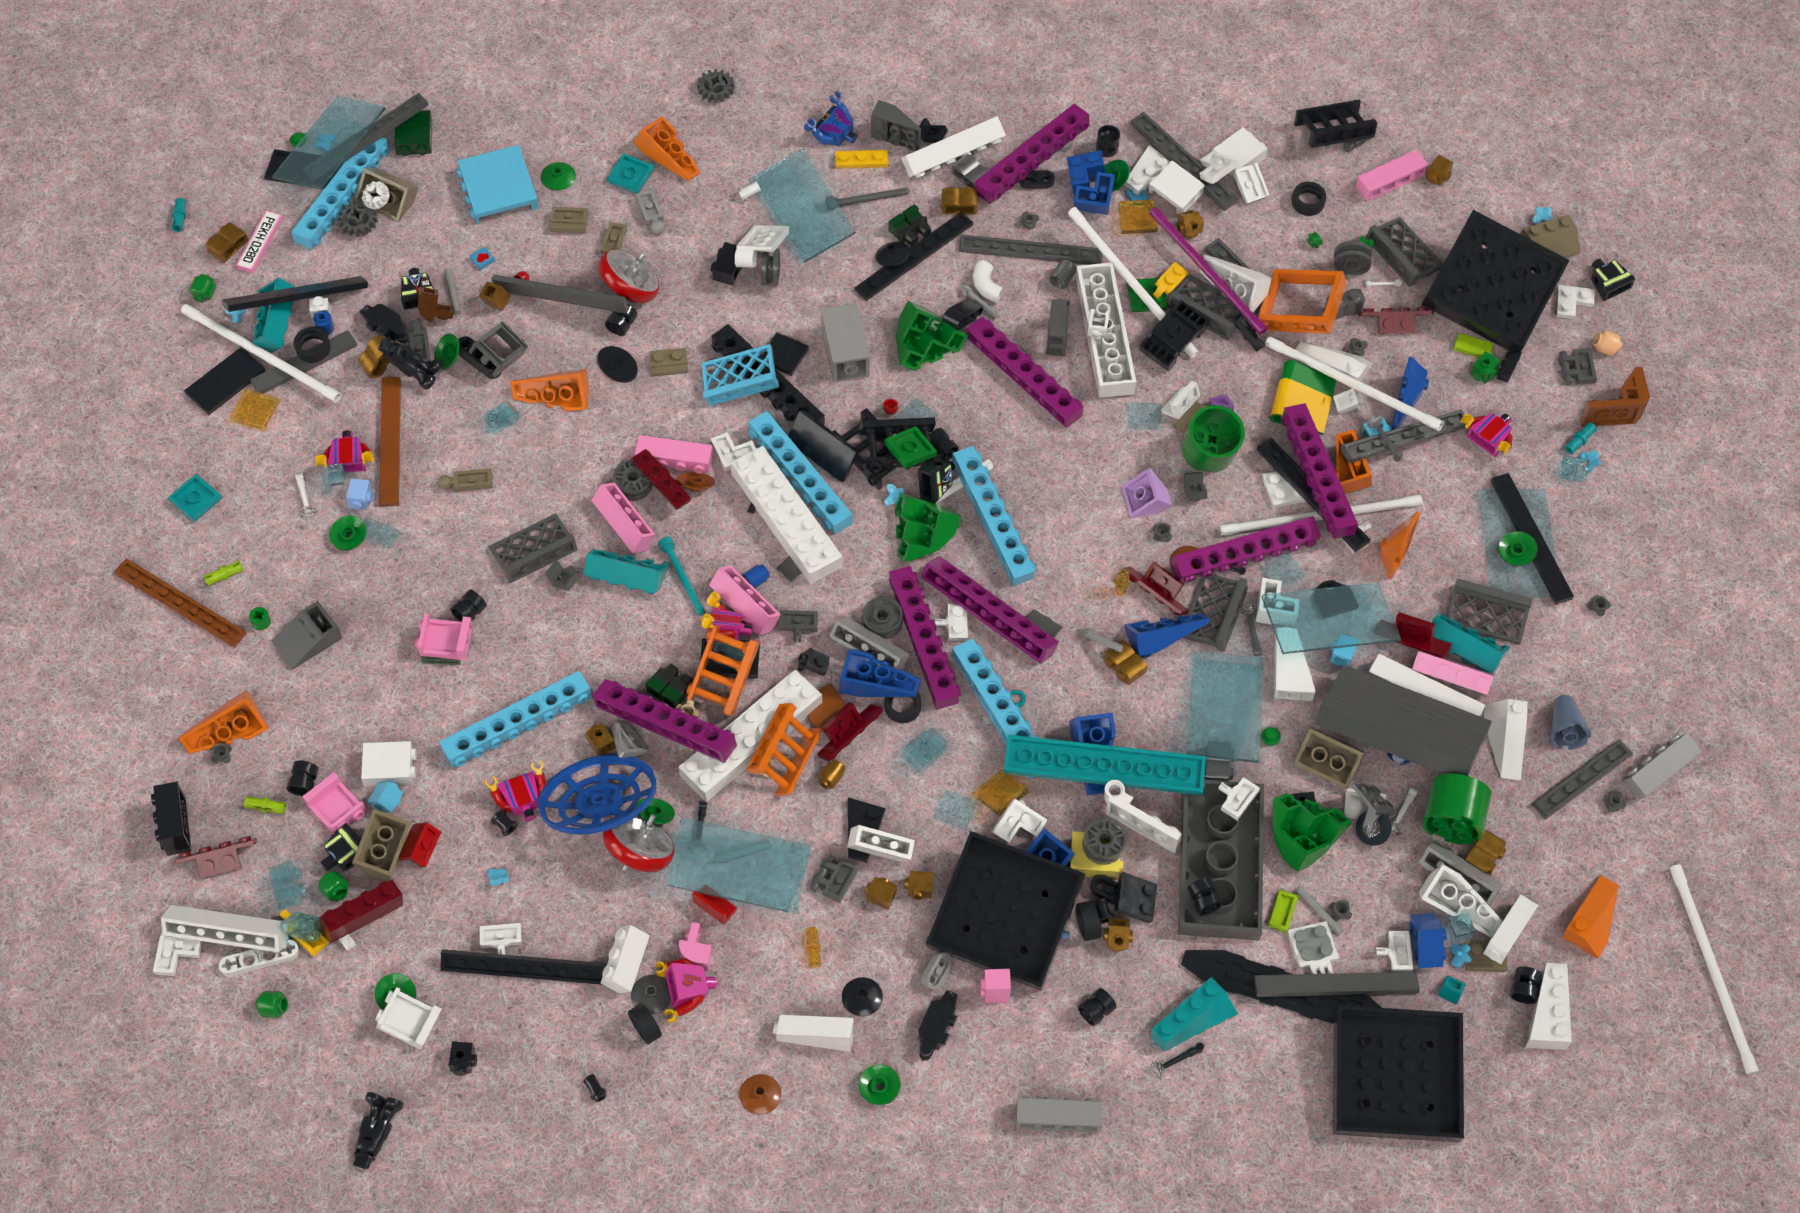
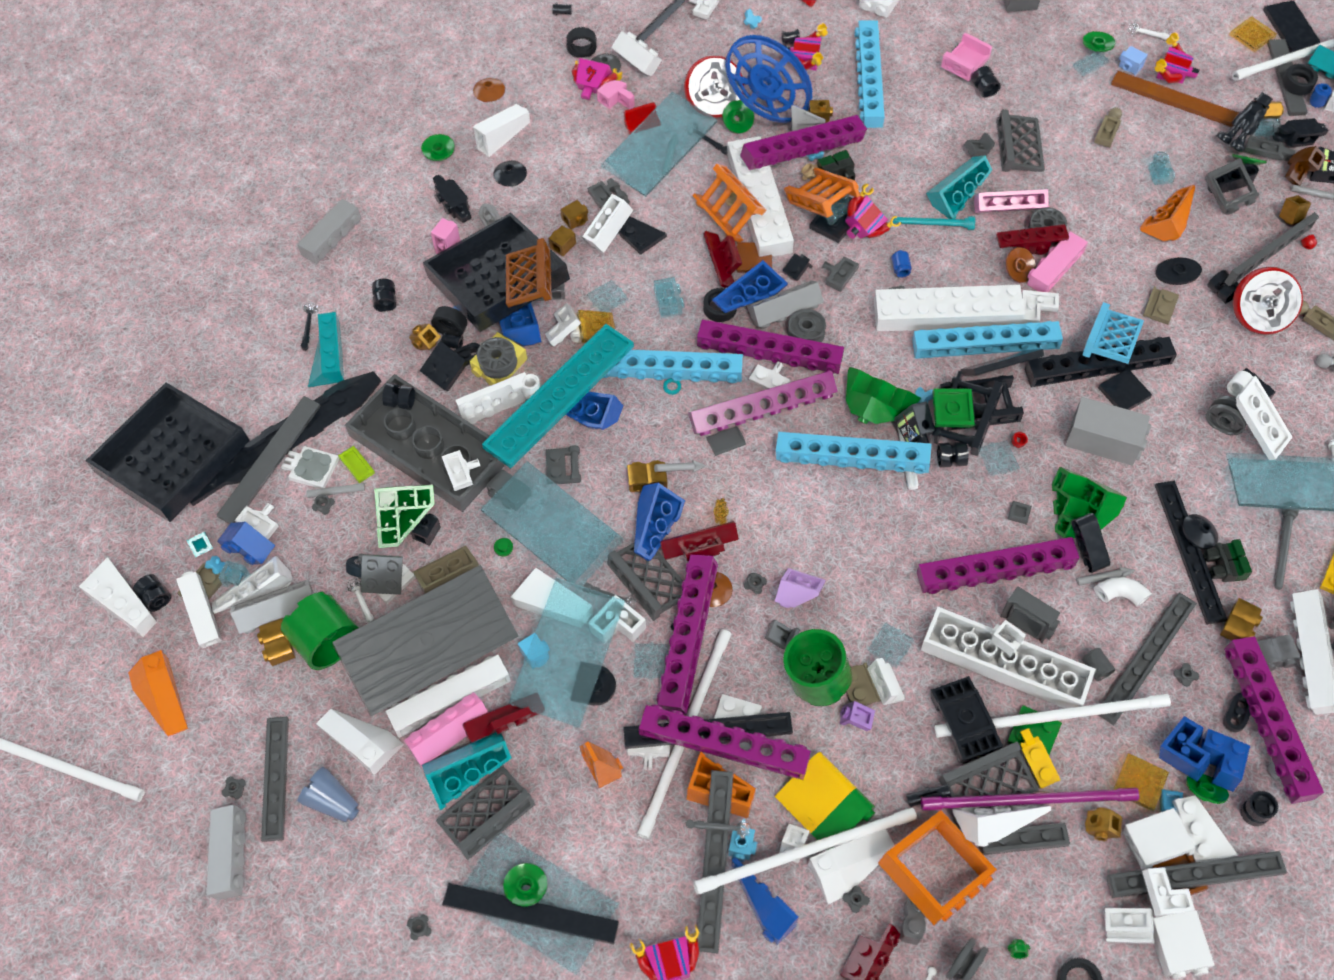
camera: 125 degrees right, 0 degrees up
(334, 476) = (1158, 48): clear light blue panel -> none
(745, 599) = (882, 243): bright pink brick -> none
(813, 947) = (565, 159): clear yellow axle -> none
(831, 774) = (692, 231): pearl gold brick -> none
(960, 380) = (1019, 512): none -> dark grey tile
(997, 838) = (541, 271): none -> dark orange fence
(1165, 742) = (557, 465): none -> dark grey plate

